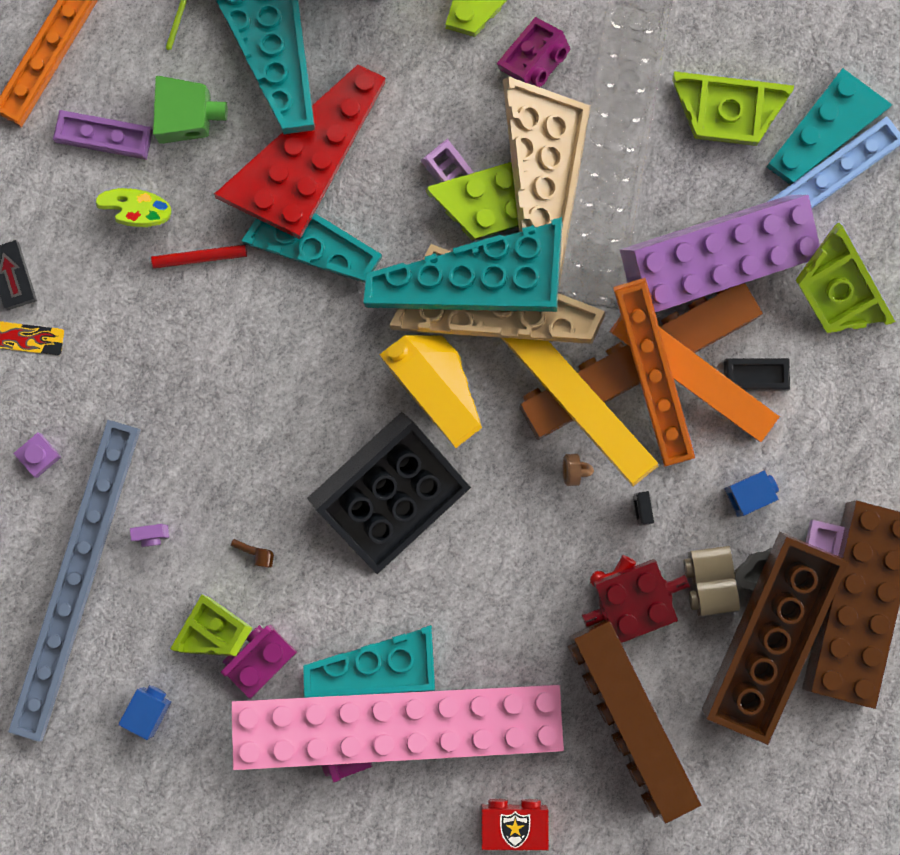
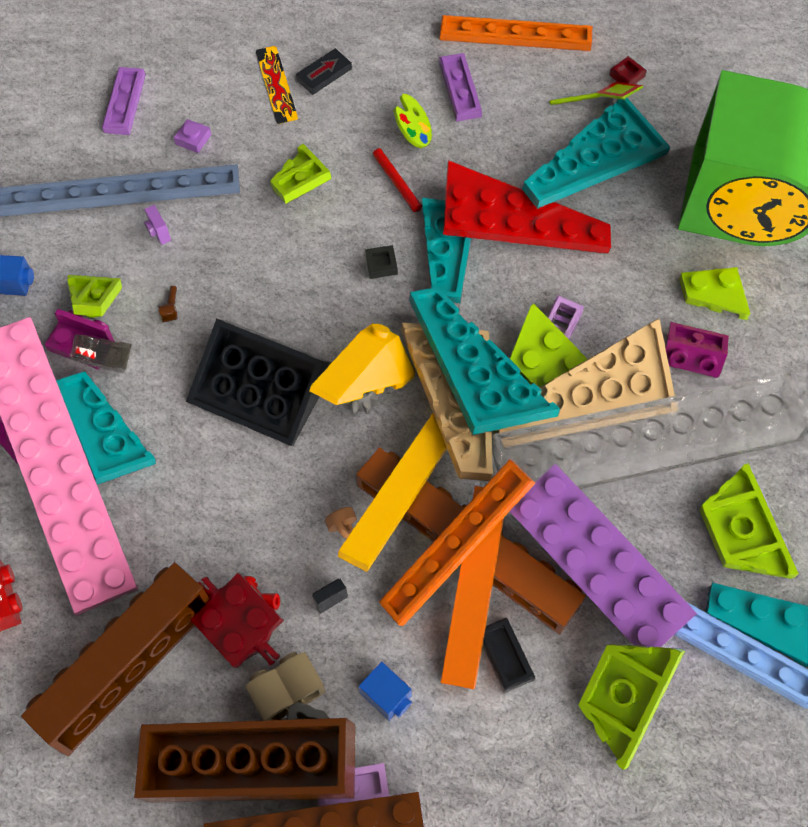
camera: 70 degrees right, 20 degrees down
(149, 357) = (299, 175): none -> lime wing
(184, 110) = (505, 124): bright green torso -> none
(294, 640) = (101, 353): none -> clear smoke leg
(300, 315) = (381, 261): none -> pearl dark grey plate

